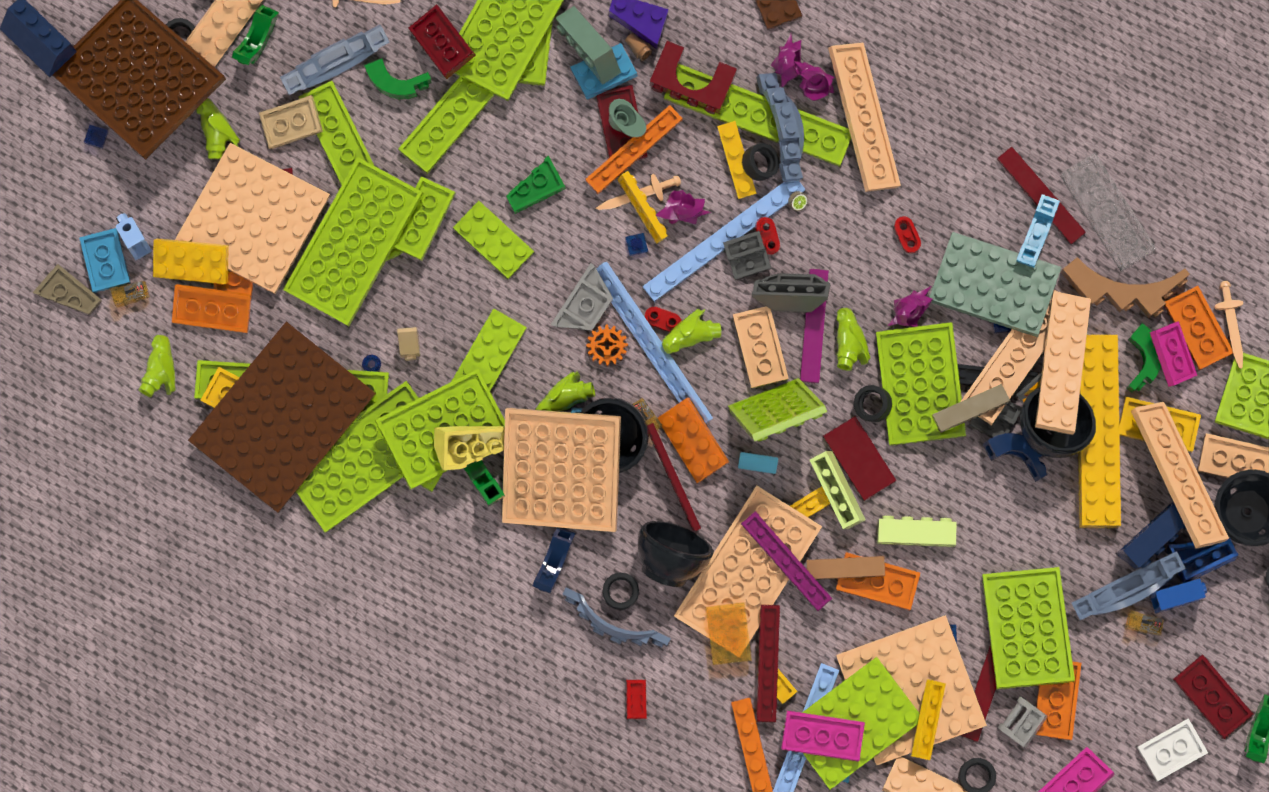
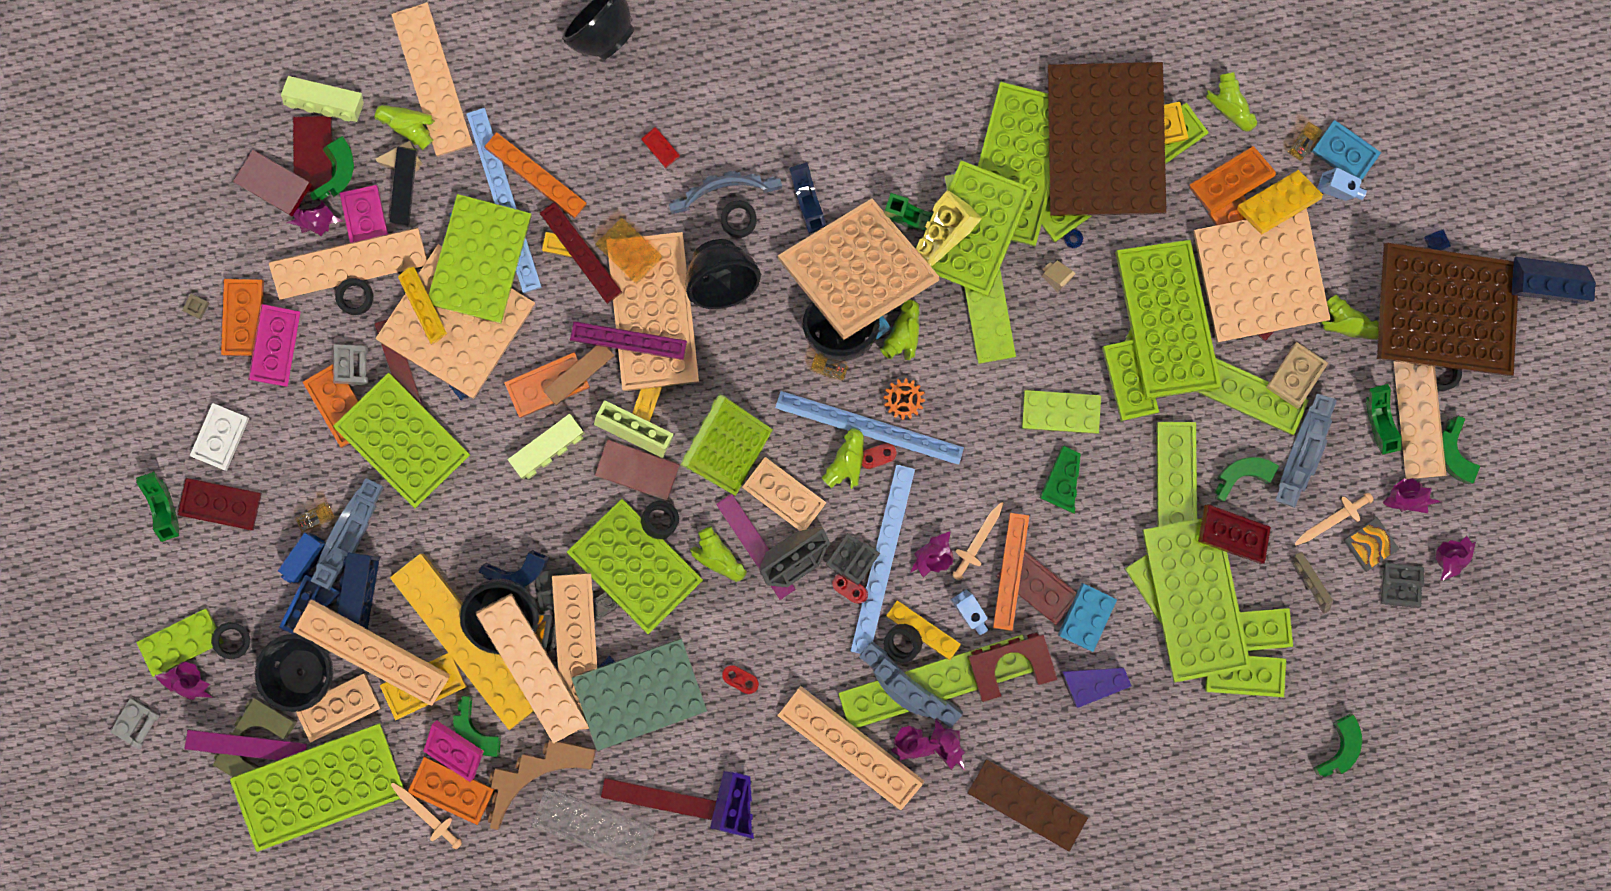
camera: 145 degrees right, 5 degrees up
(67, 291) = (1353, 106): dark tan wing -> none
(586, 303) = (948, 419): light grey wing -> none
(588, 44) = (1117, 626): sand green wedge -> none
(626, 119) = (1036, 590): sand green piece -> none
(636, 244) = (947, 499): clear blue plate -> none
(639, 47) = (1076, 660): medium nougat cone -> none
(643, 209) = (957, 529): yellow plate -> none
(675, 482) = (768, 335): dark red tile -> none
(689, 145) = (966, 606): none -> light blue torso
(693, 440) = (777, 378): orange plate -> none
(758, 462) = (704, 407): medium azure slope -> none
(798, 201) = (848, 636): tile -> none
(823, 736) = (493, 228): dark pink tile -> none
(911, 308) = (690, 620): magenta hair -> none
(970, 408) = (577, 574): dark tan tile -> none
(988, 144) = (732, 806): none -> dark purple wedge
(1038, 231) = (637, 764): slope -> none

